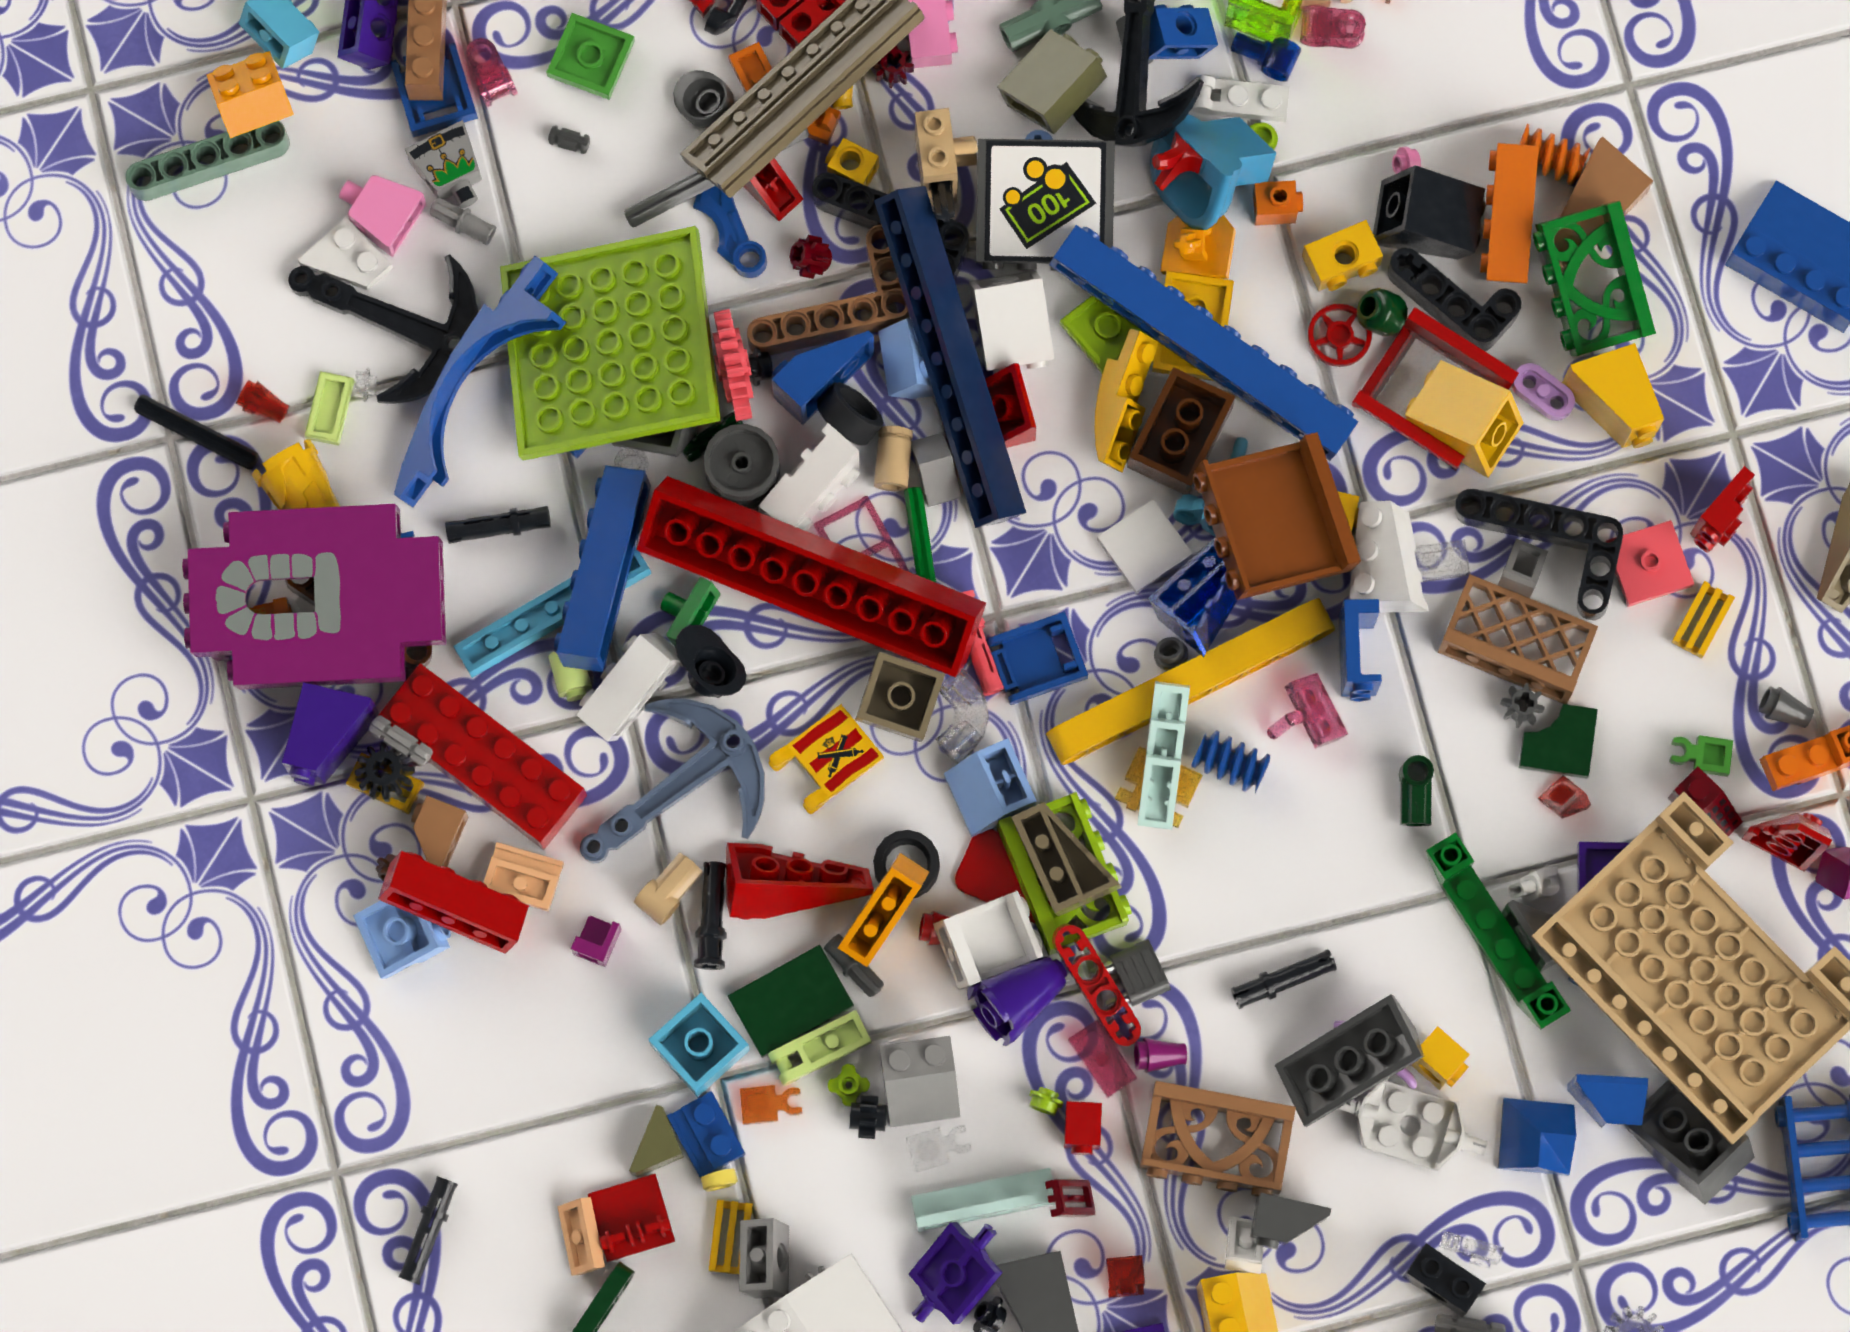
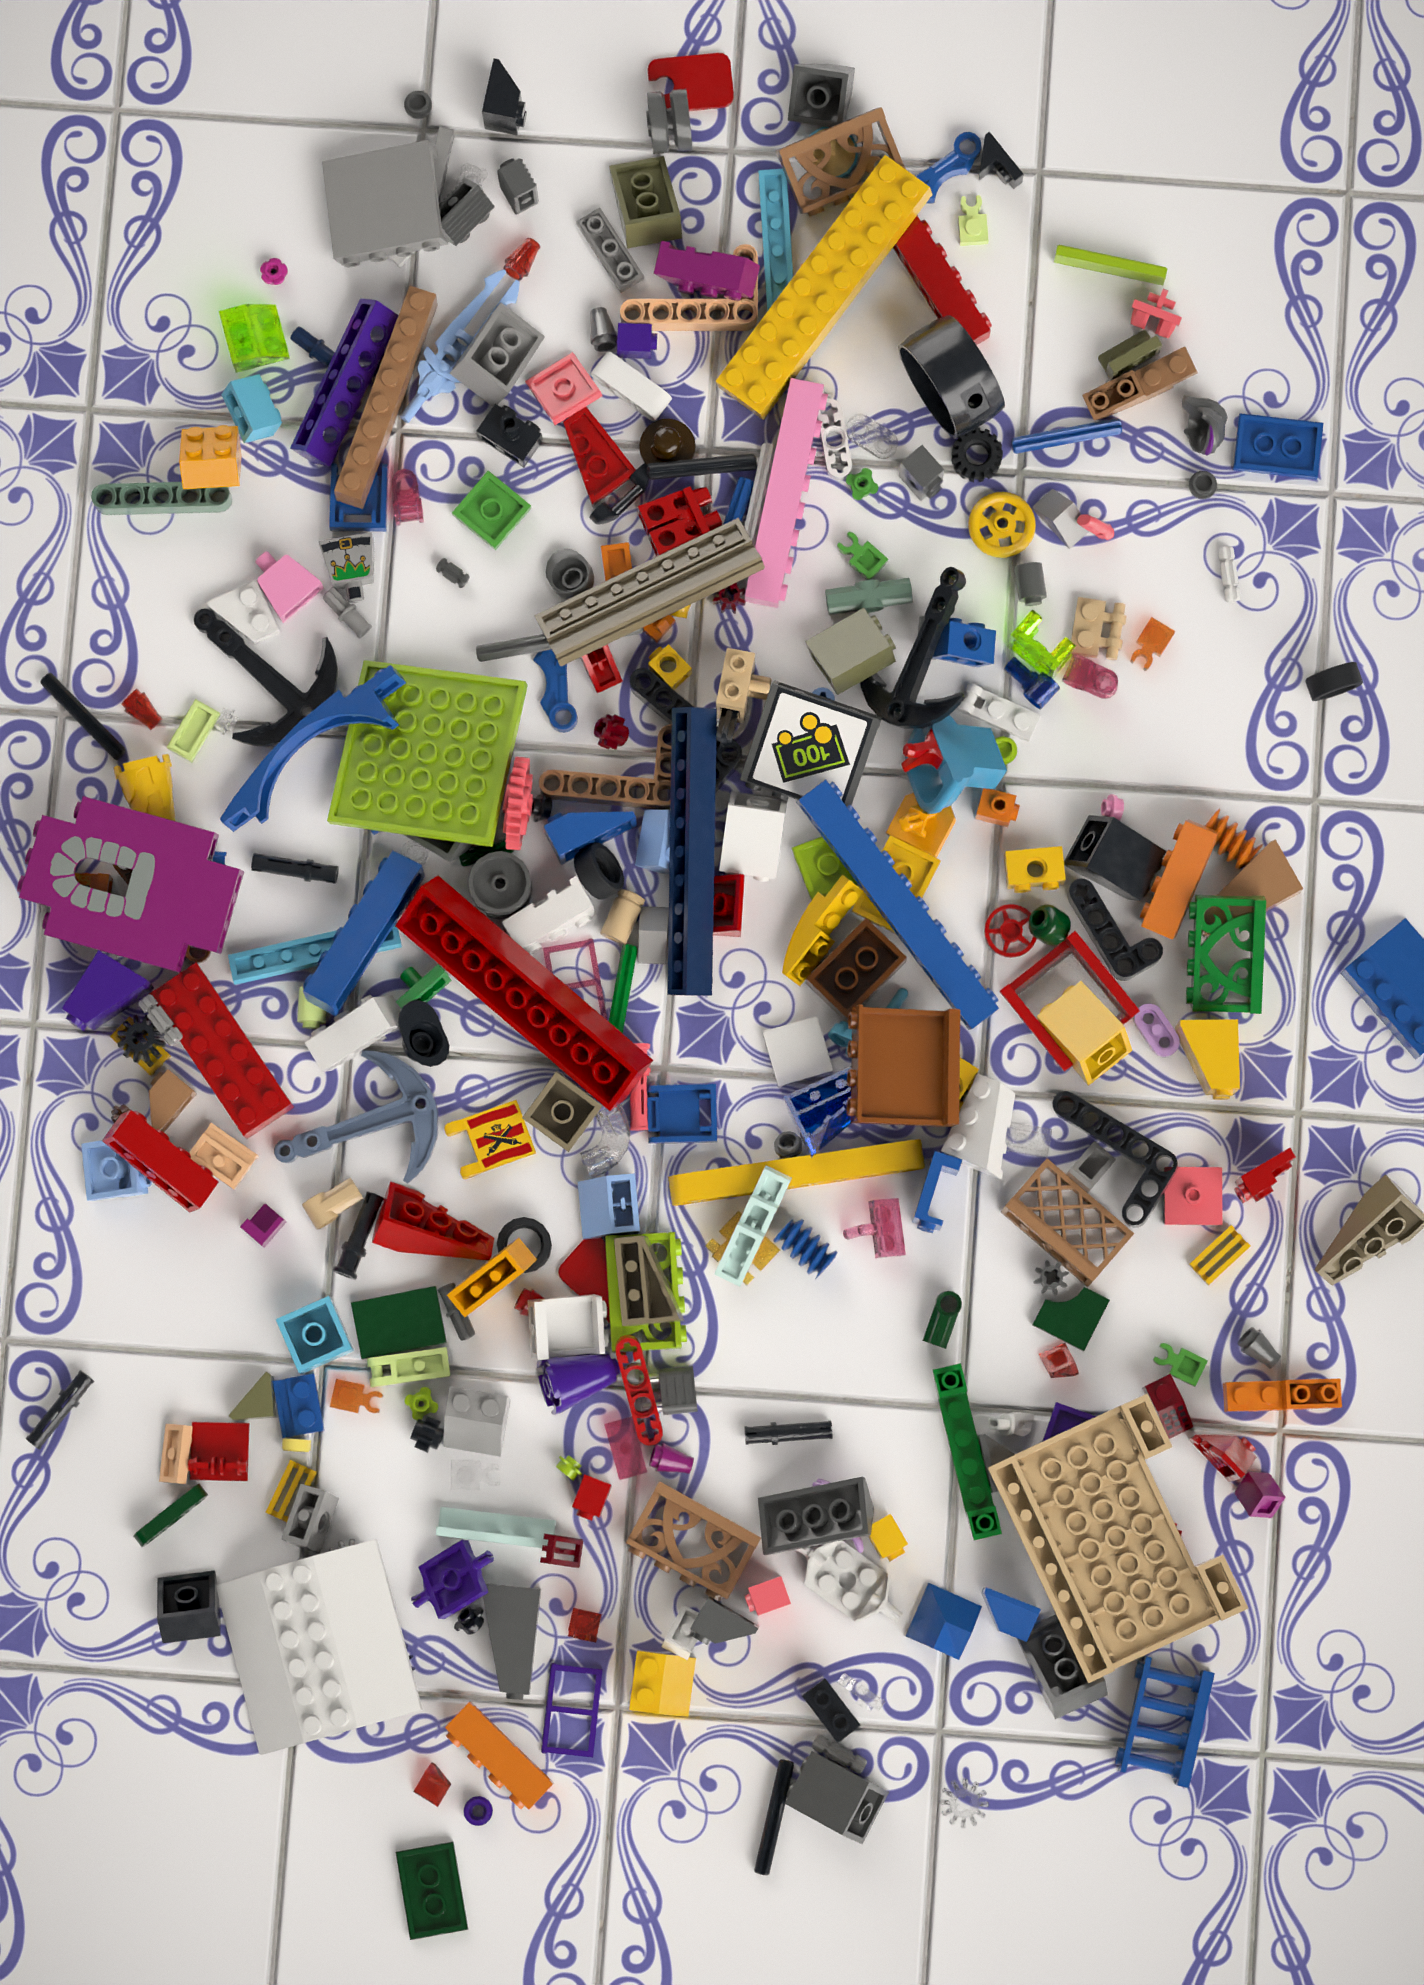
camera: 20 degrees right, 5 degrees up
(1327, 1171) = (767, 1596): none -> coral brick

